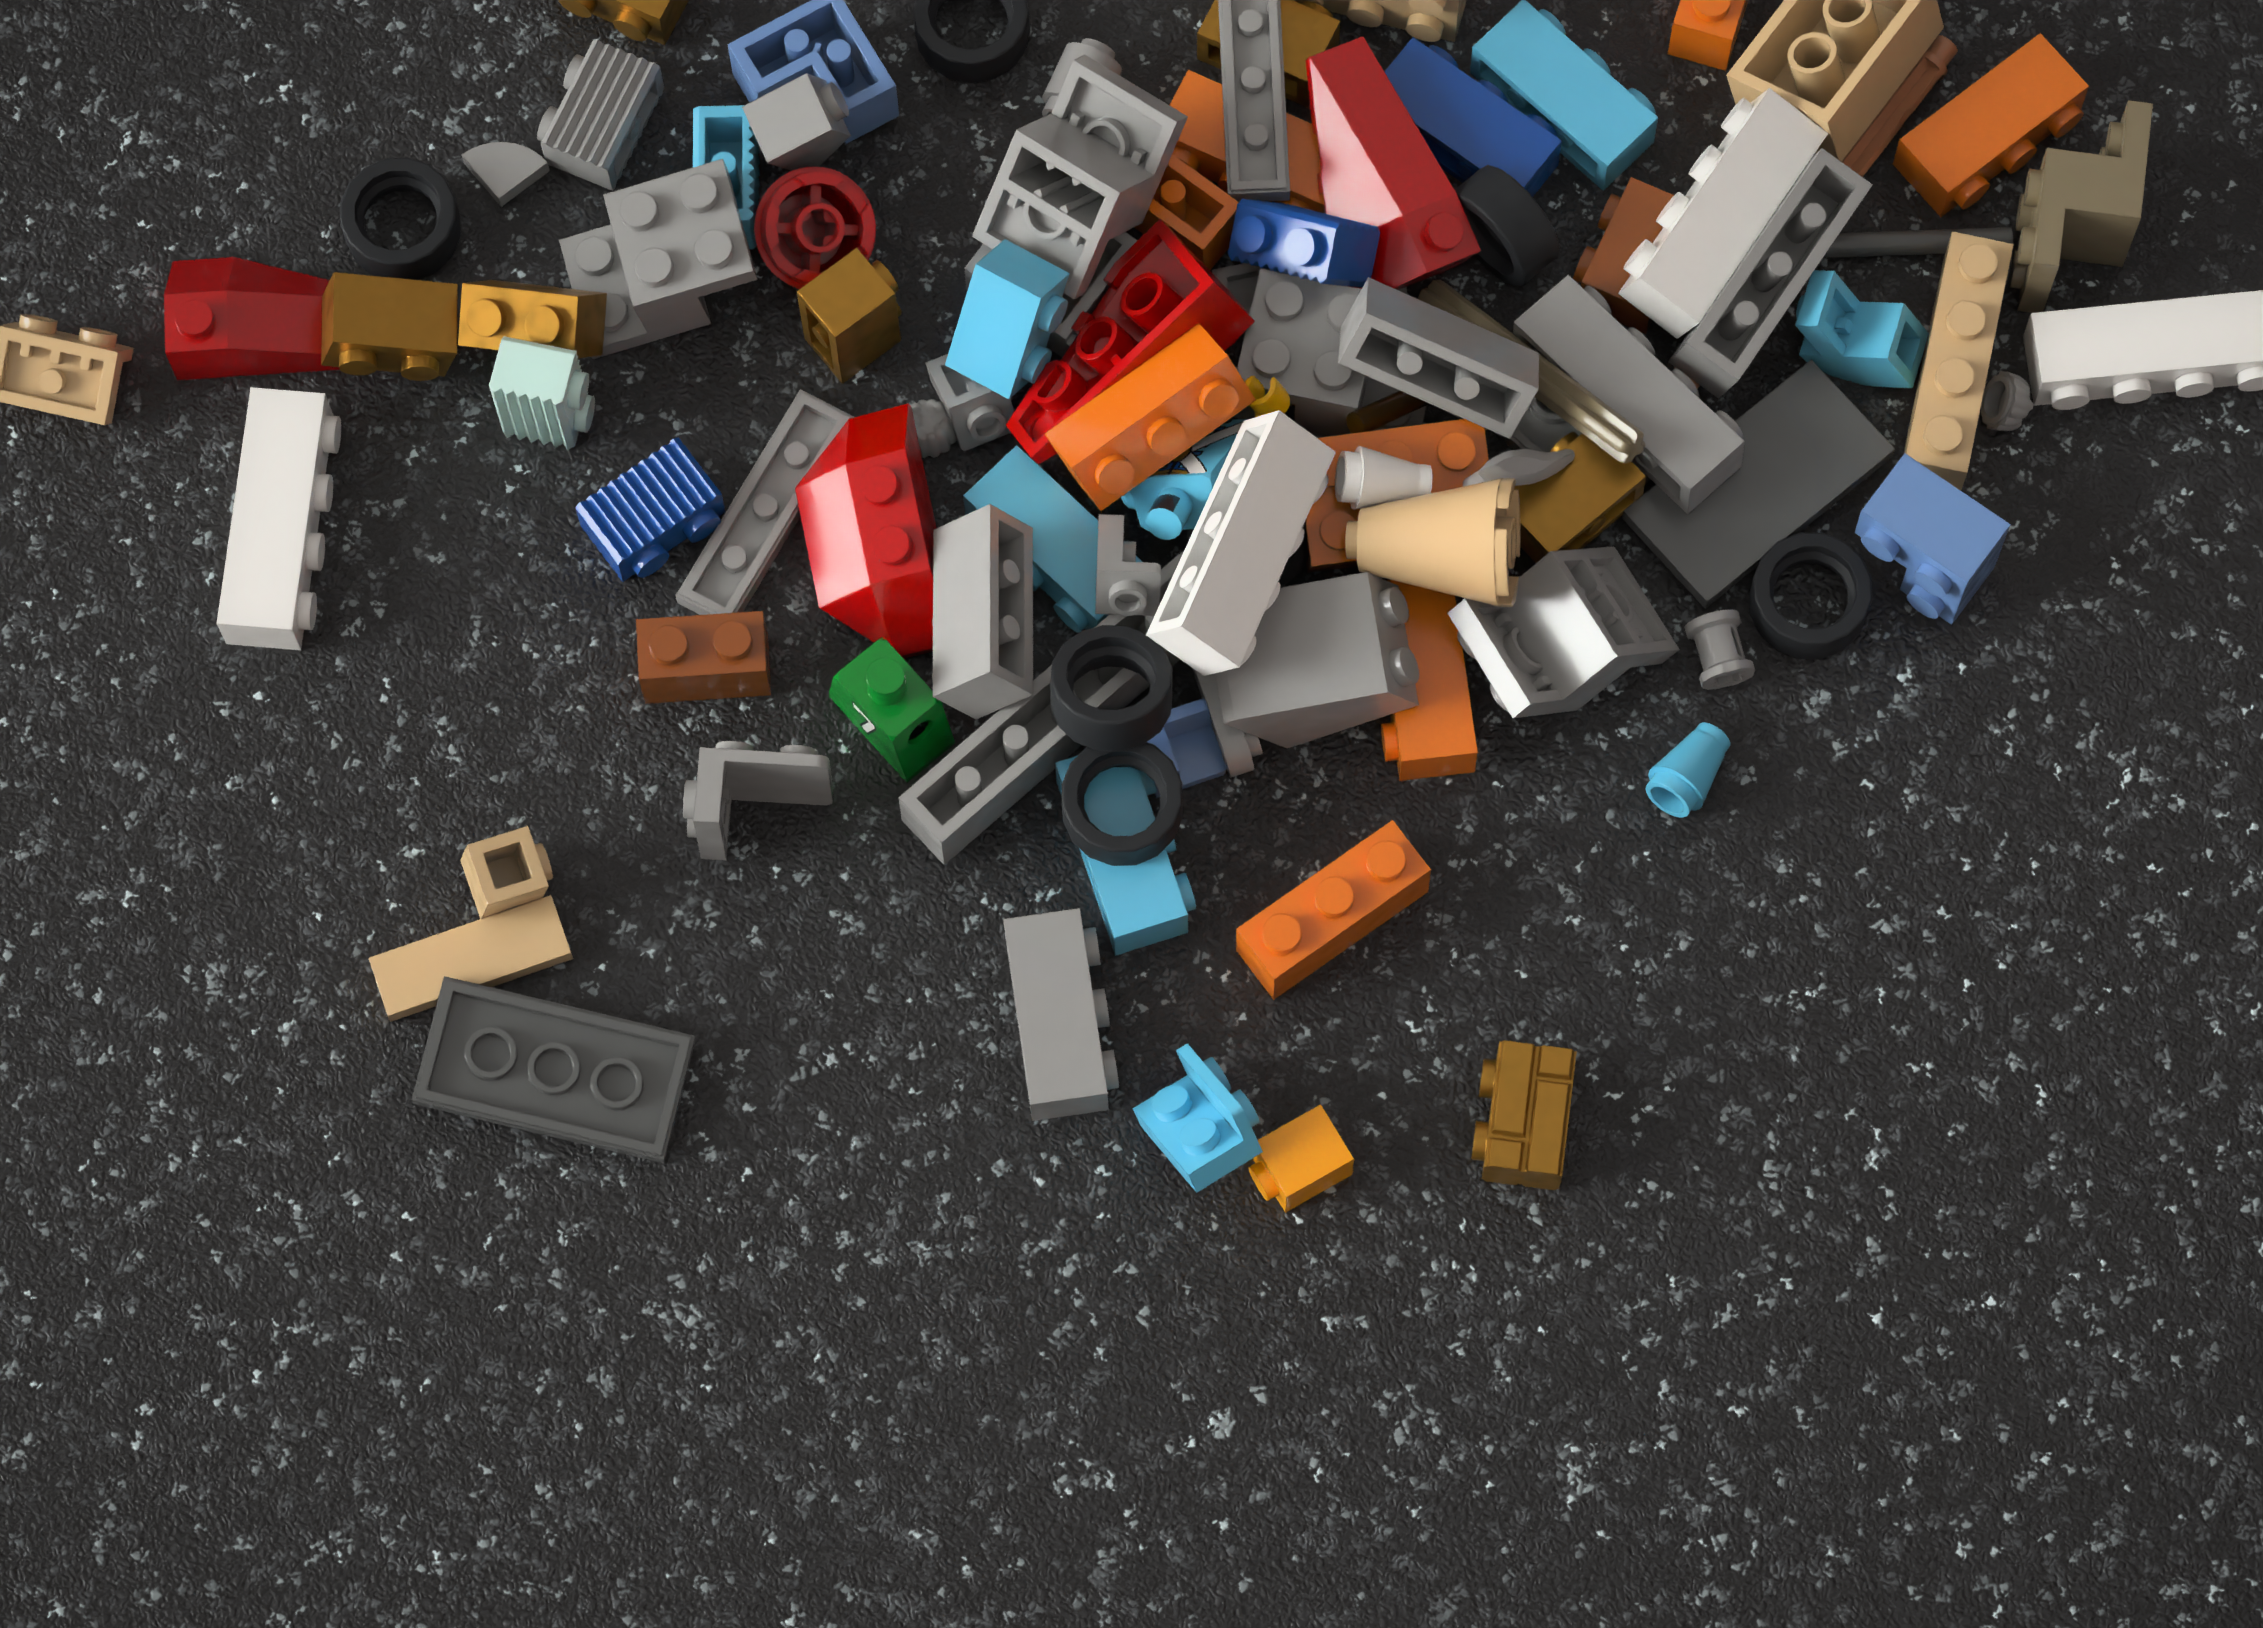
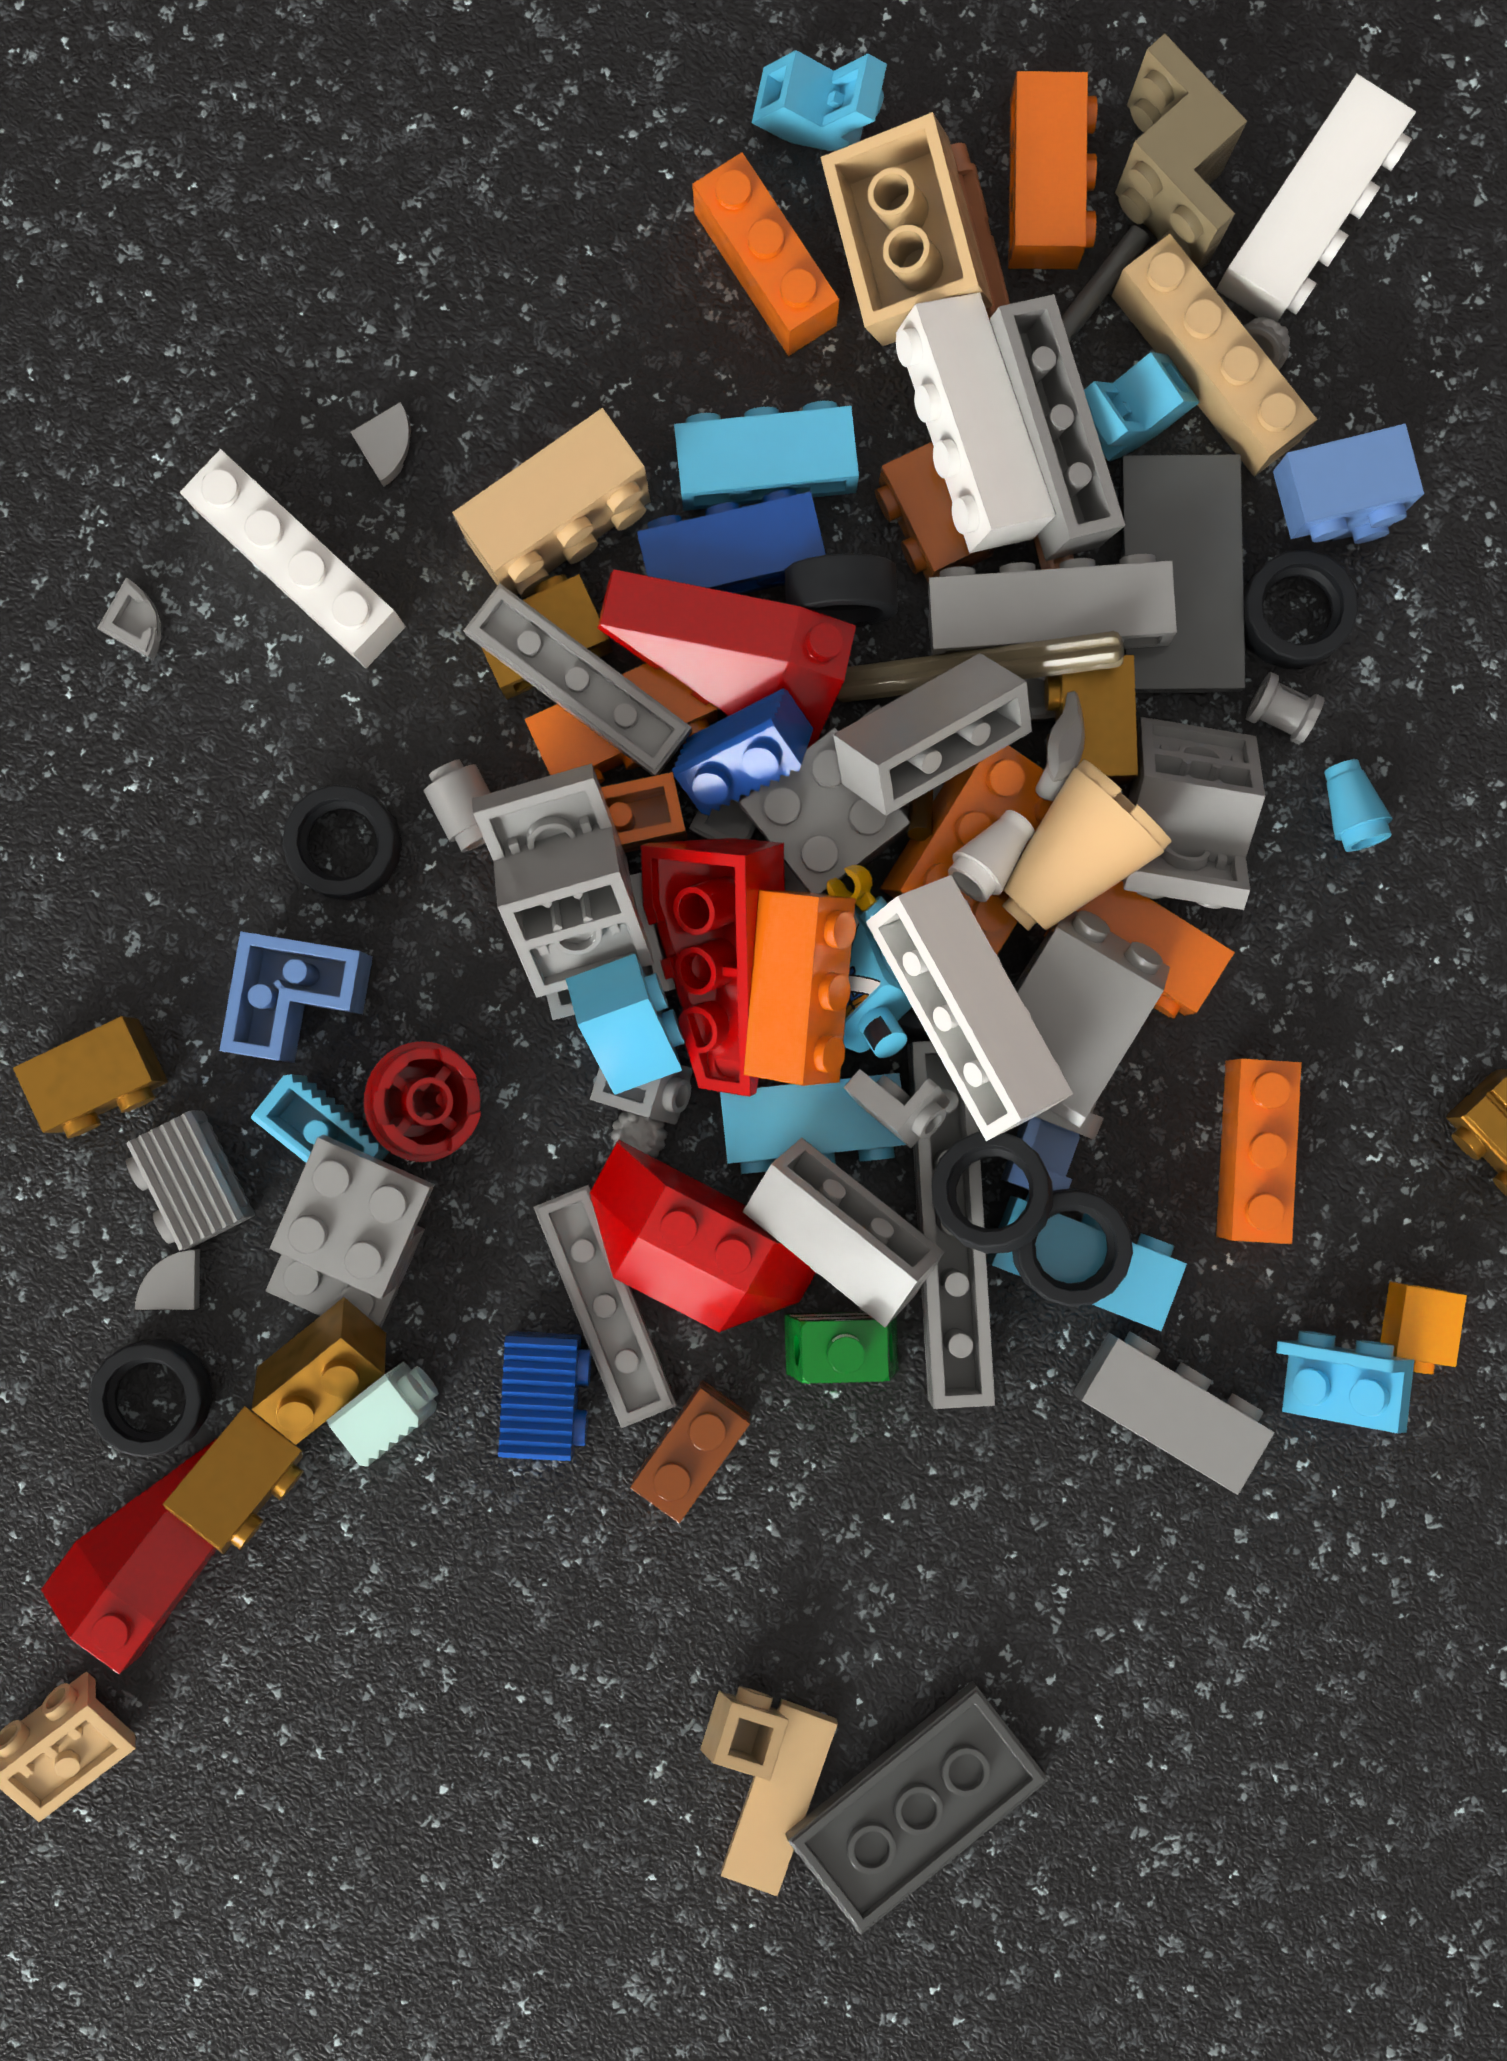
camera: 50 degrees left, 15 degrees up
(277, 519) = (319, 1679): white brick -> none
(742, 774) = (817, 1545): light grey bracket -> none
(799, 122) = (330, 1051): light grey slope -> none
(850, 314) = (513, 1129): pearl gold brick -> none

